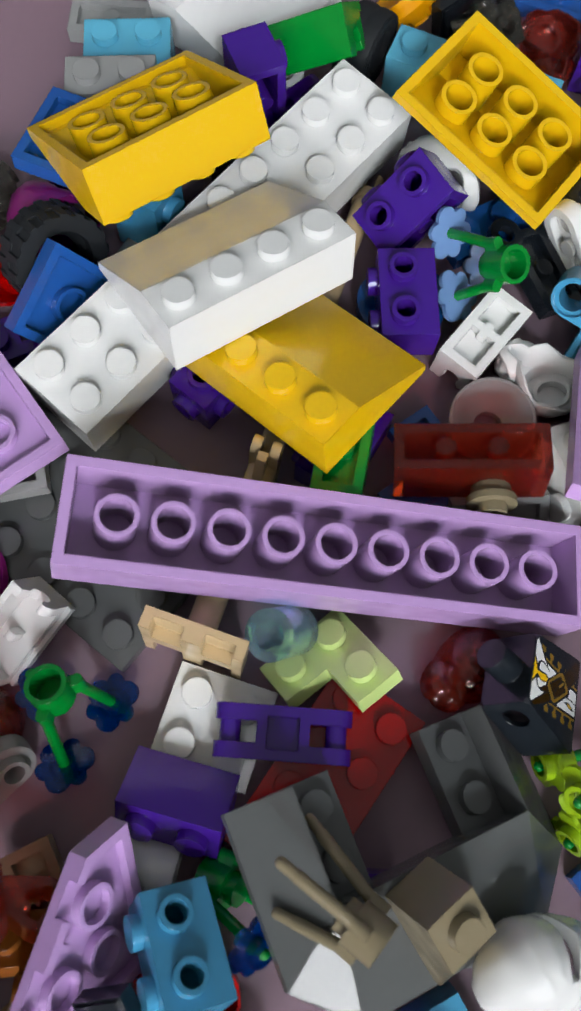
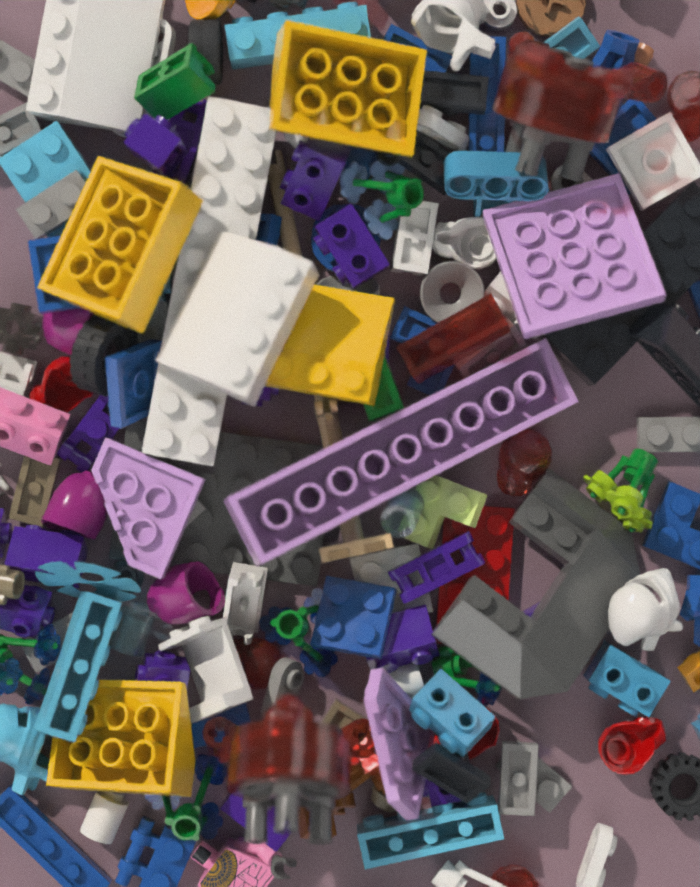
camera: 25 degrees left, 15 degrees up
(136, 735) = (353, 617): none -> blue plate
(362, 927) = (538, 647): dark tan plant -> none
(440, 917) = (577, 616): dark tan slope -> none
(491, 497) = (481, 356): dark tan plate -> none
(530, 692) = (565, 458): black torso -> none

